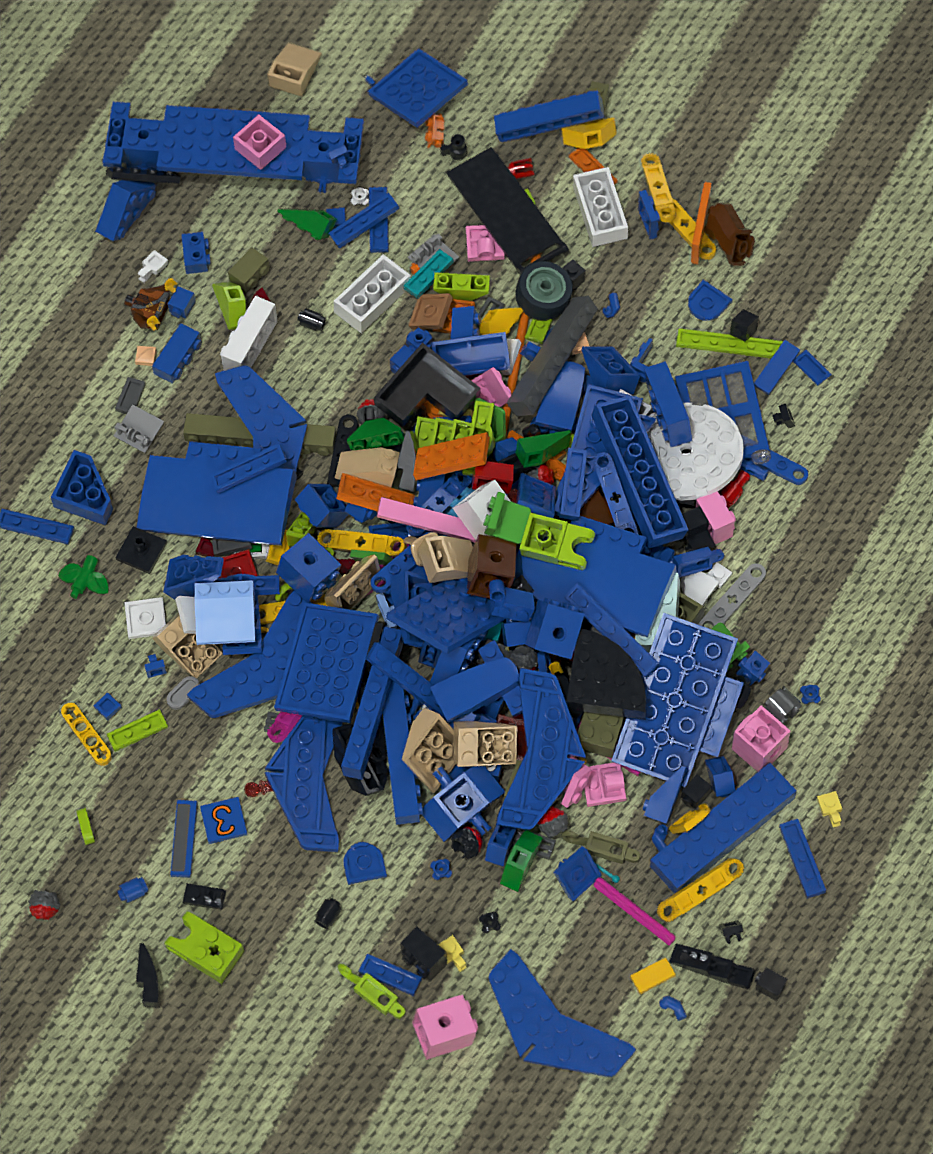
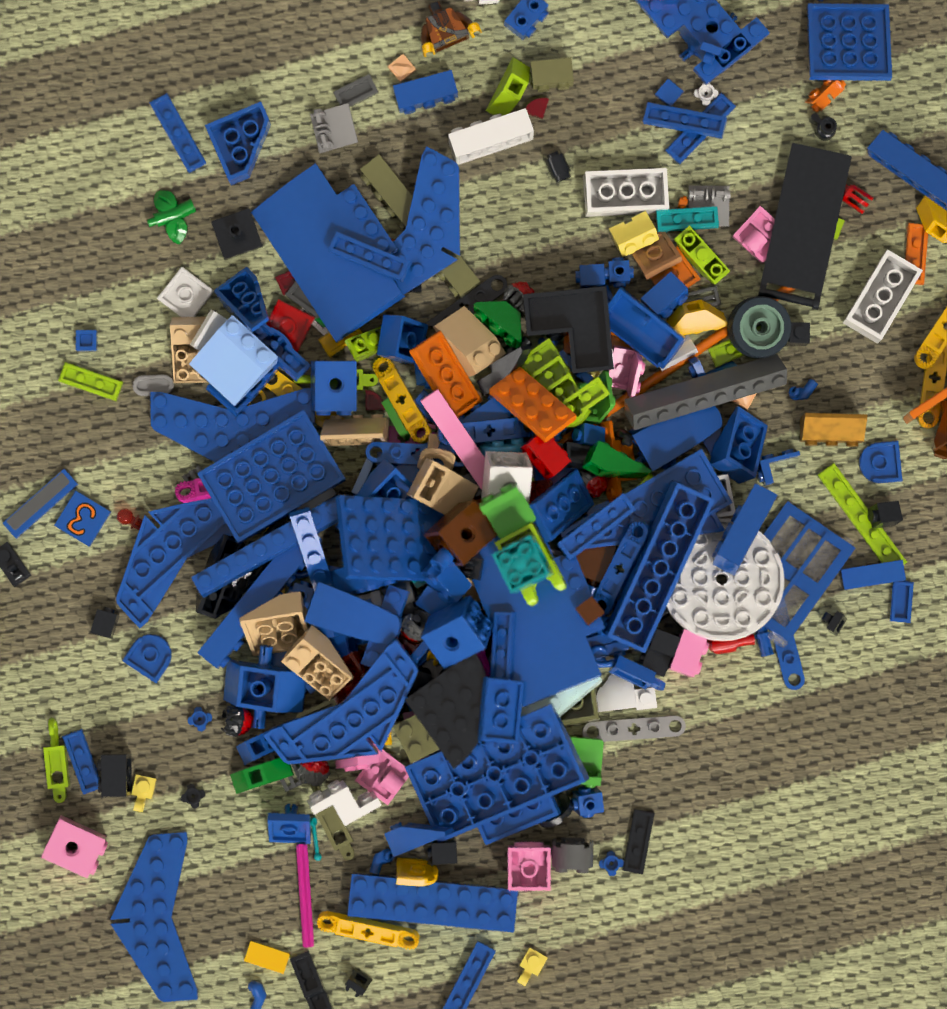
camera: 45 degrees right, 20 degrees up
(84, 735) = (54, 347): yellow beam -> none
(155, 667) = (151, 343): blue tile -> none
(181, 302) = (472, 50): blue brick -> none
(310, 869) = (105, 622): none -> black brick
(314, 221) = (645, 79): green slope -> none
(327, 913) = (83, 670): black brick -> none
(405, 312) = (634, 235): none -> light yellow brick
(553, 535) = (523, 564): none -> teal brick
(595, 814) = (343, 802): none -> white bracket
(625, 533) = (589, 611): none -> reddish brown tile
(636, 646) = (500, 710): none -> blue tile
(648, 215) = (908, 350): blue plate -> none
(655, 306) = (832, 429): none -> pearl gold slope
(720, 776) = (474, 859): blue slope -> none
(812, 664) = (638, 841): none -> black tile

